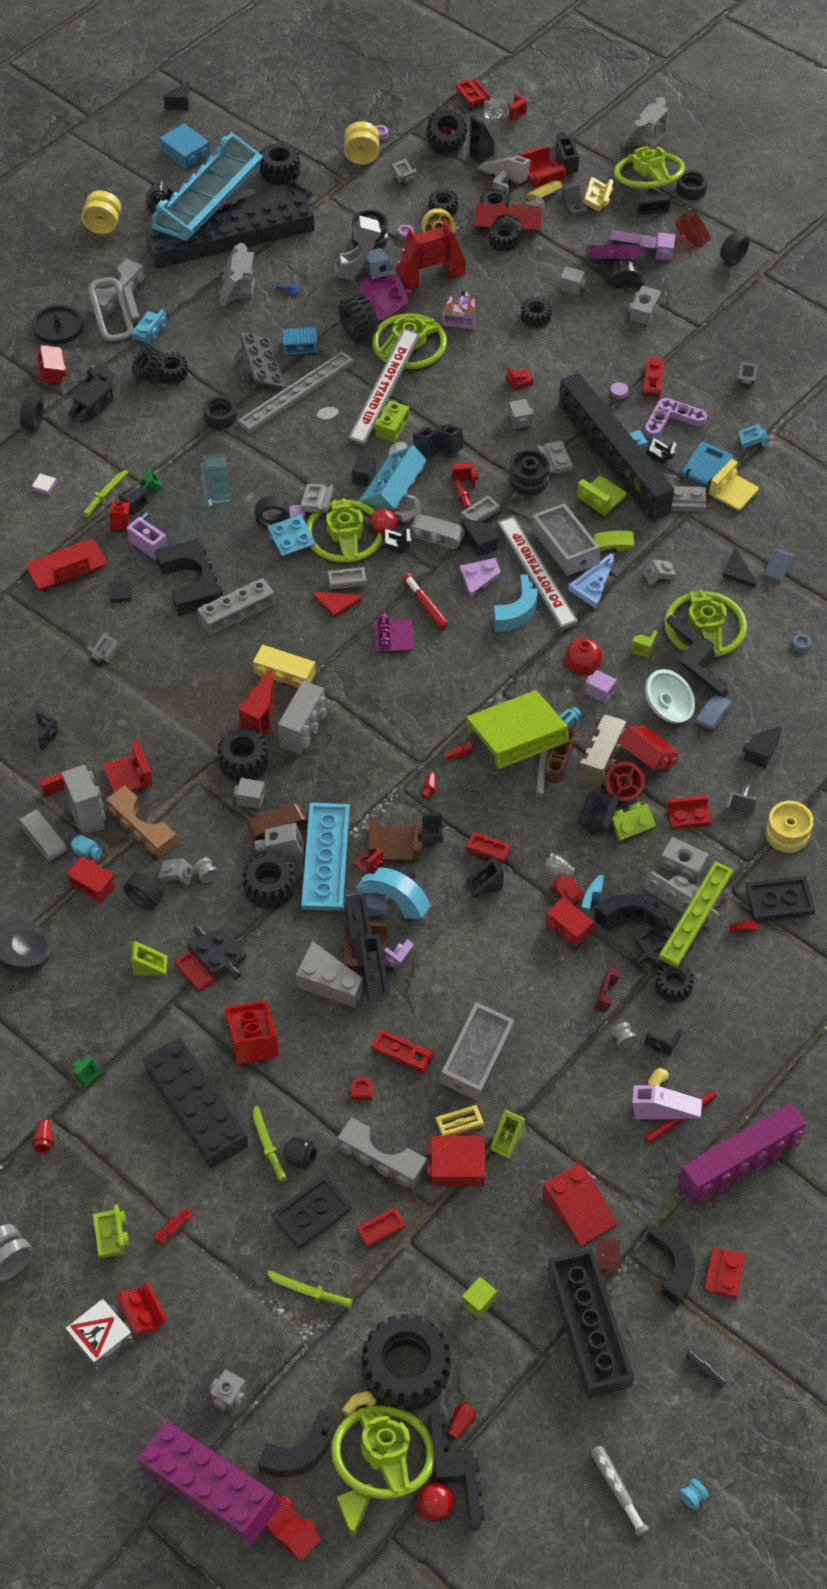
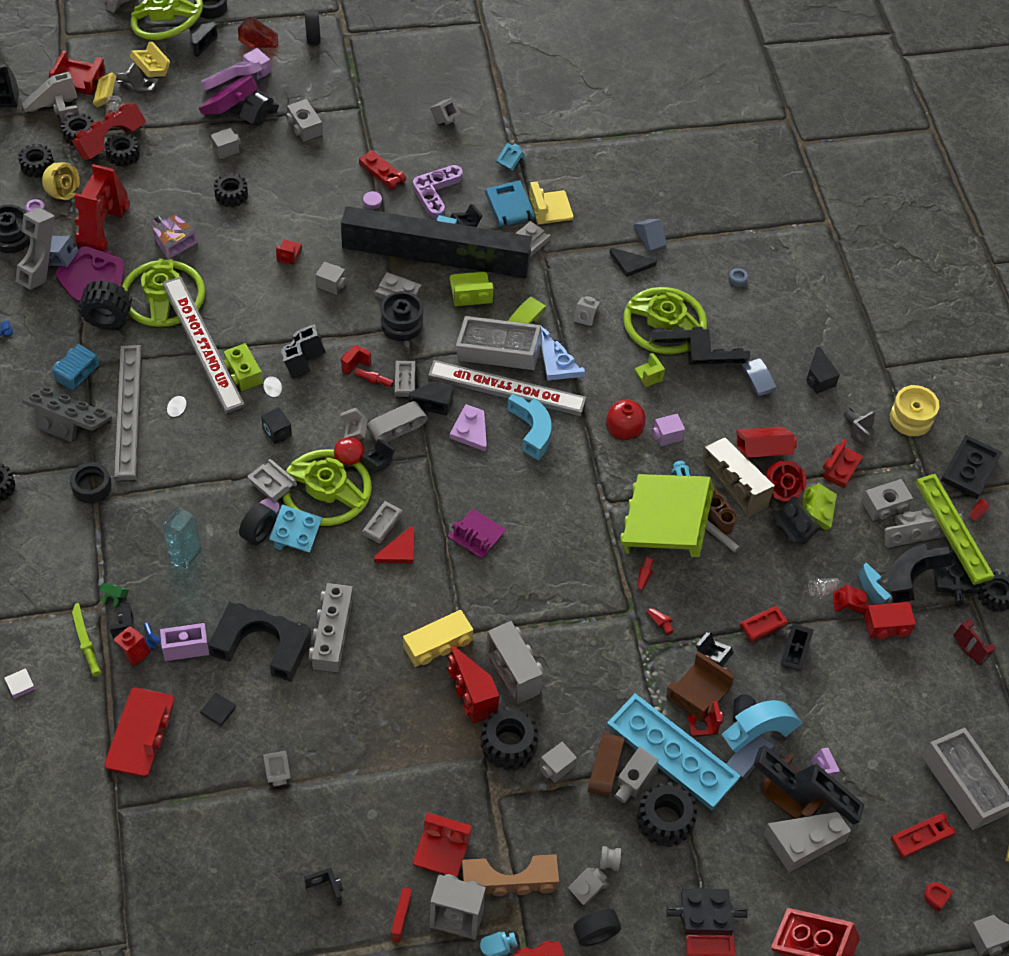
camera: 55 degrees left, 0 degrees up
(394, 479) = (309, 412): medium azure slope -> none
(429, 606) = (462, 484): red piece -> none
(567, 153) = (83, 45): black hinge -> none
(670, 696) = (724, 393): light aqua dish -> none

